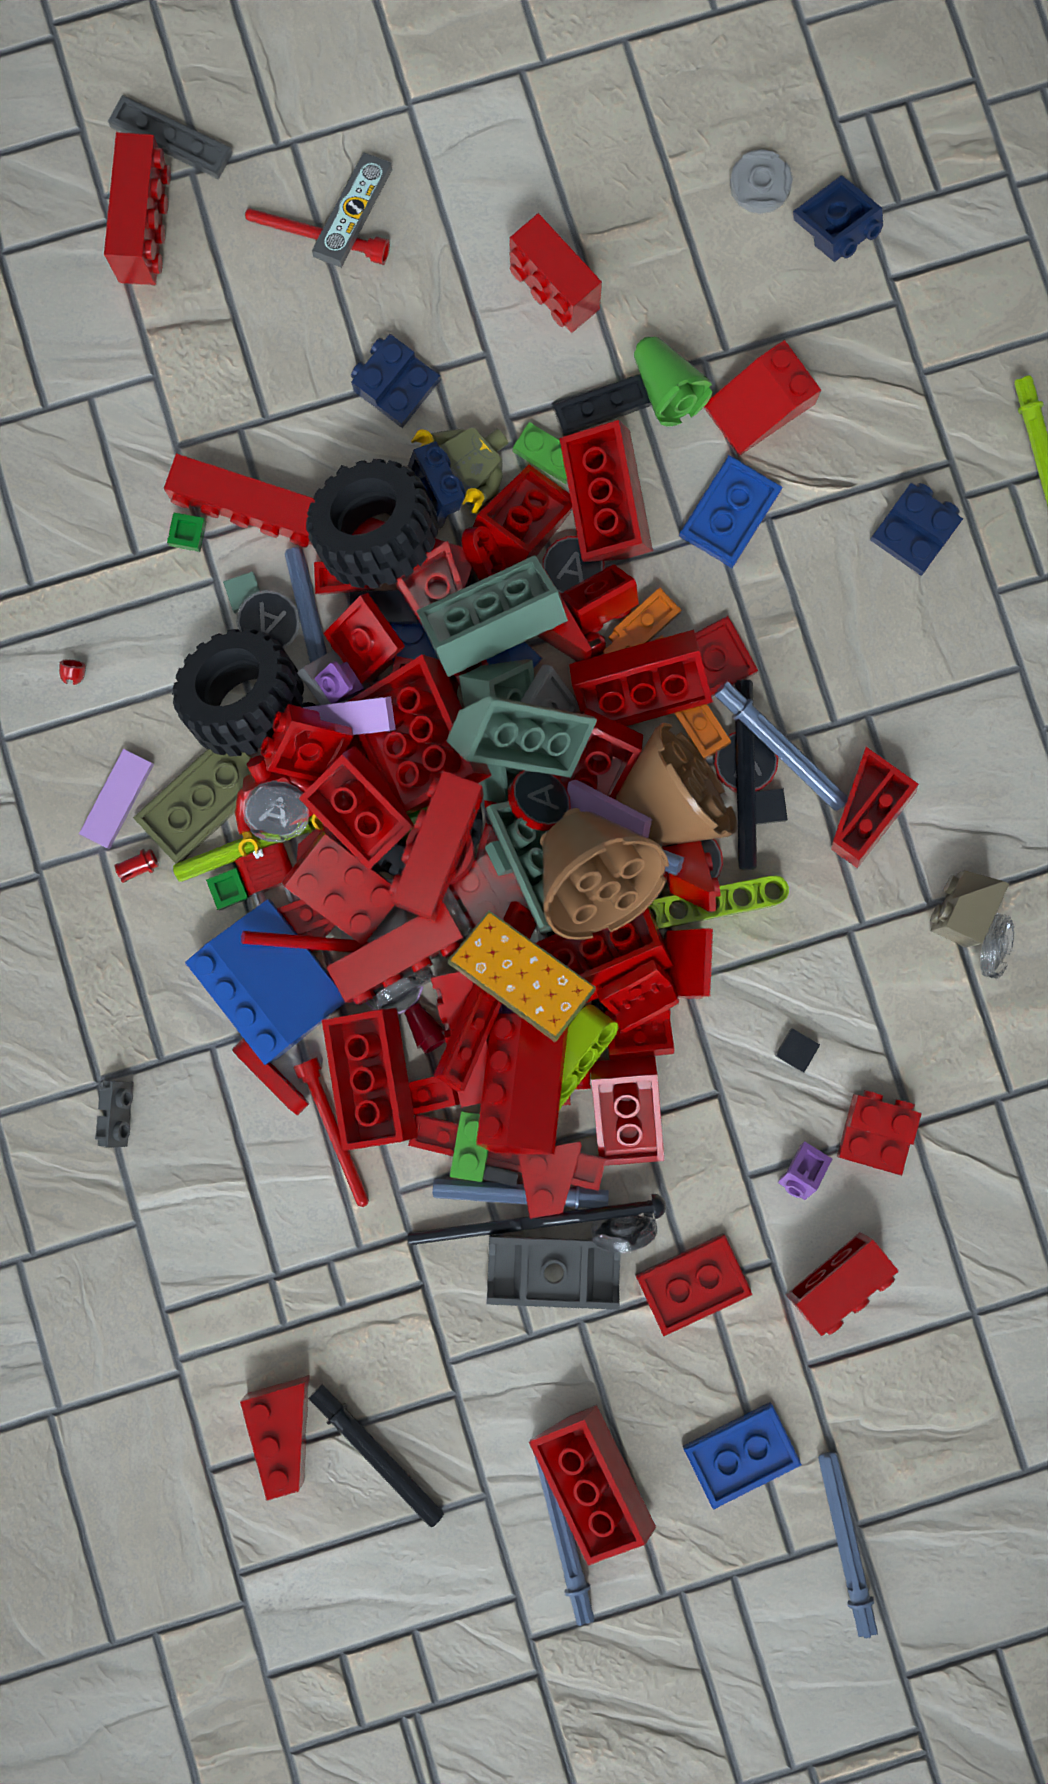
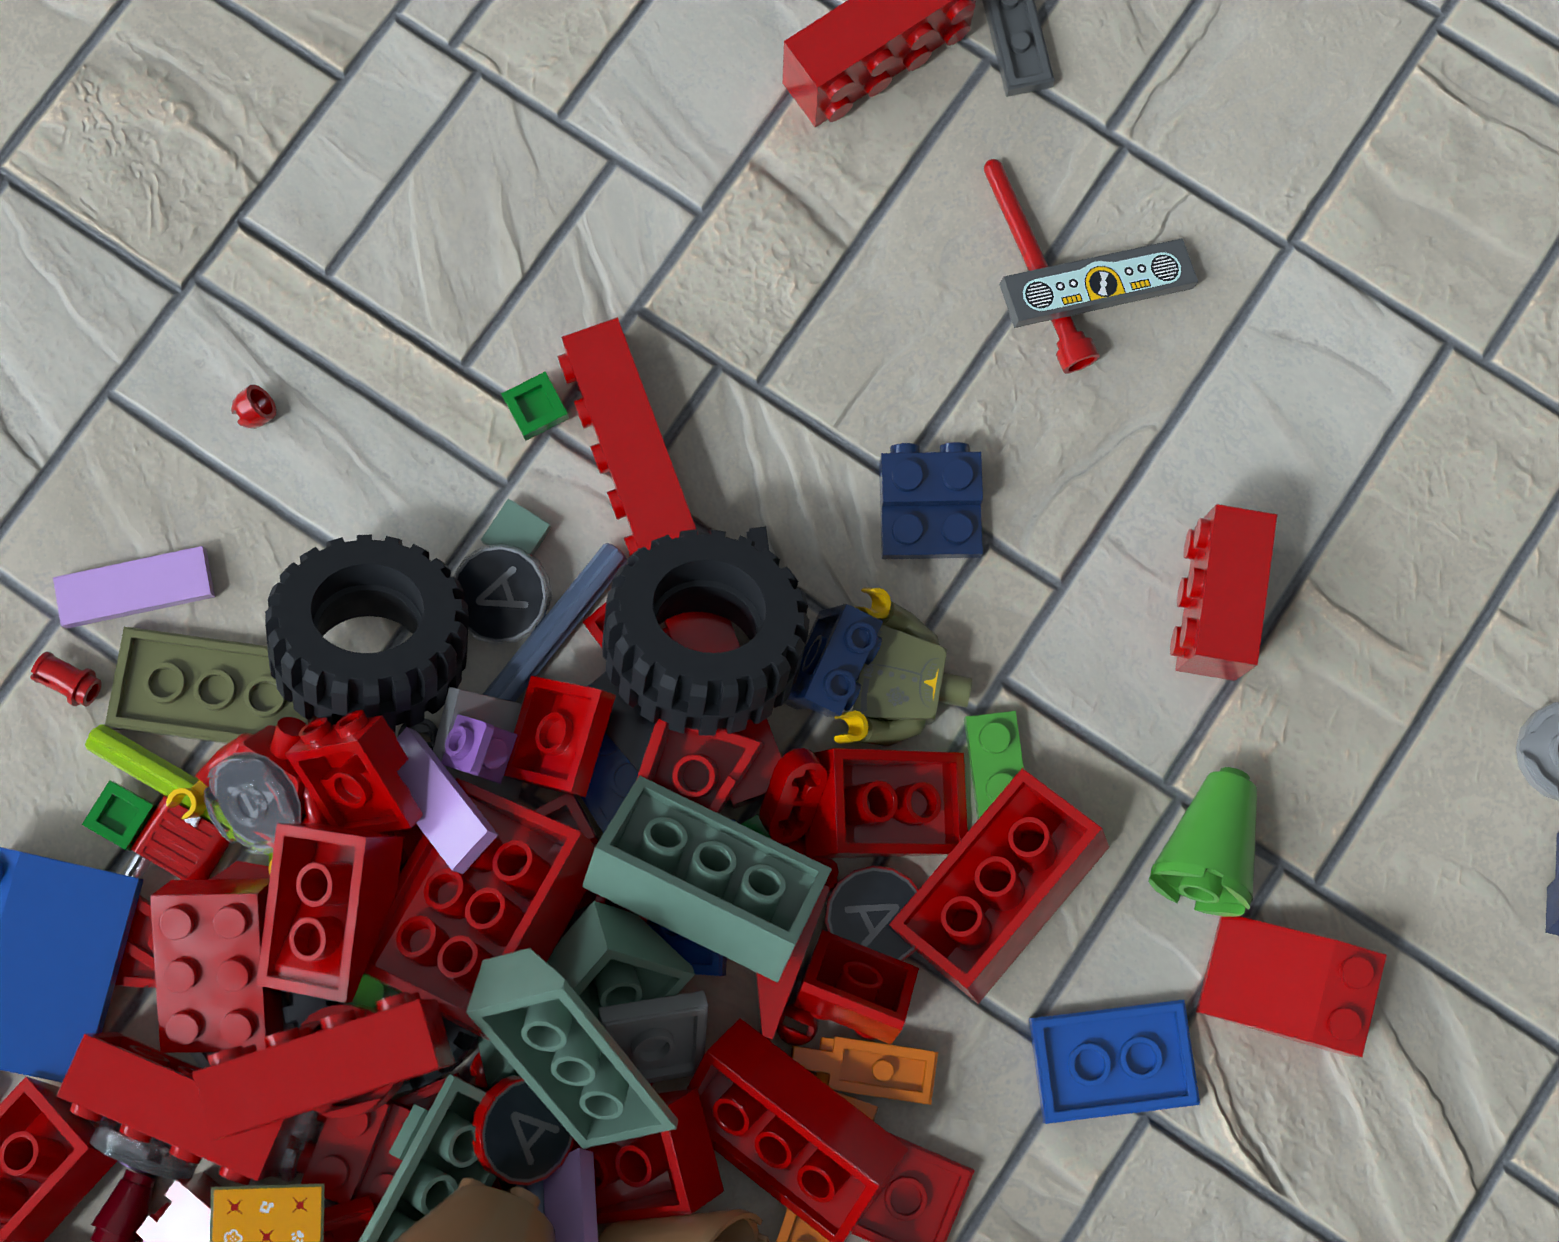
camera: 45 degrees right, 5 degrees down
(300, 941) = (104, 959): red bar -> none
(601, 405) = (1113, 783): black tile -> none

